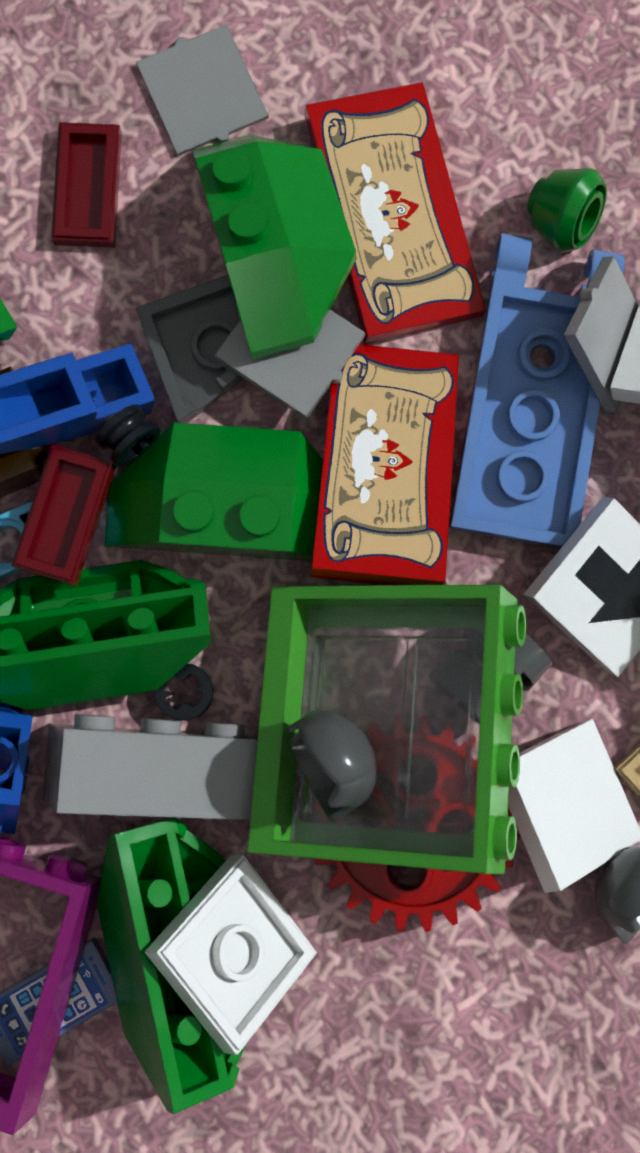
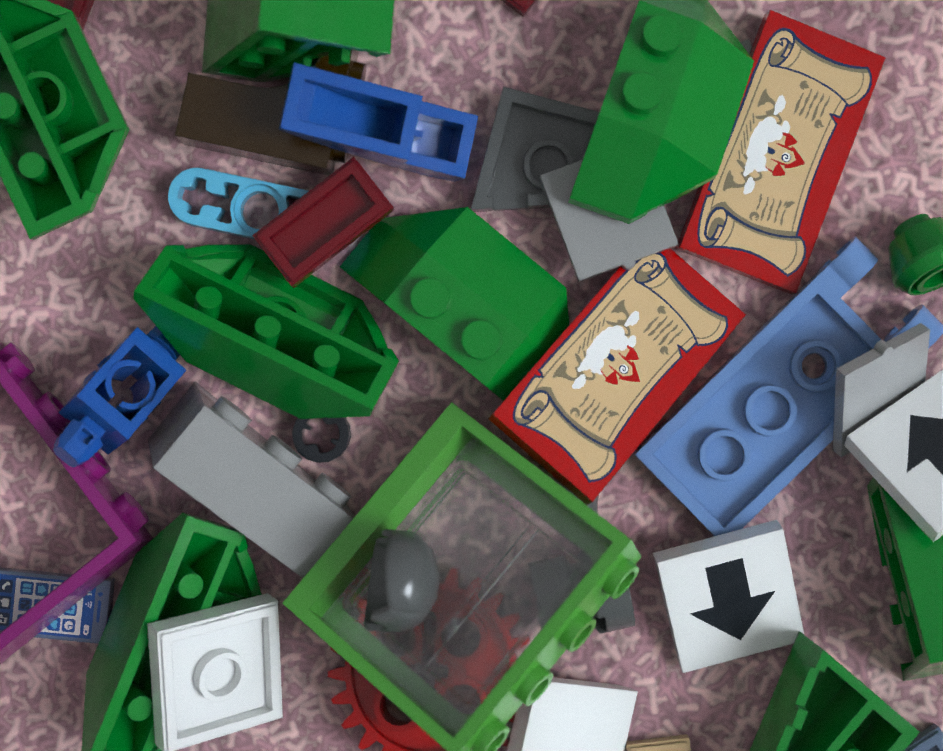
camera: 40 degrees right, 5 degrees up
(127, 435) = (421, 193): black bush -> none

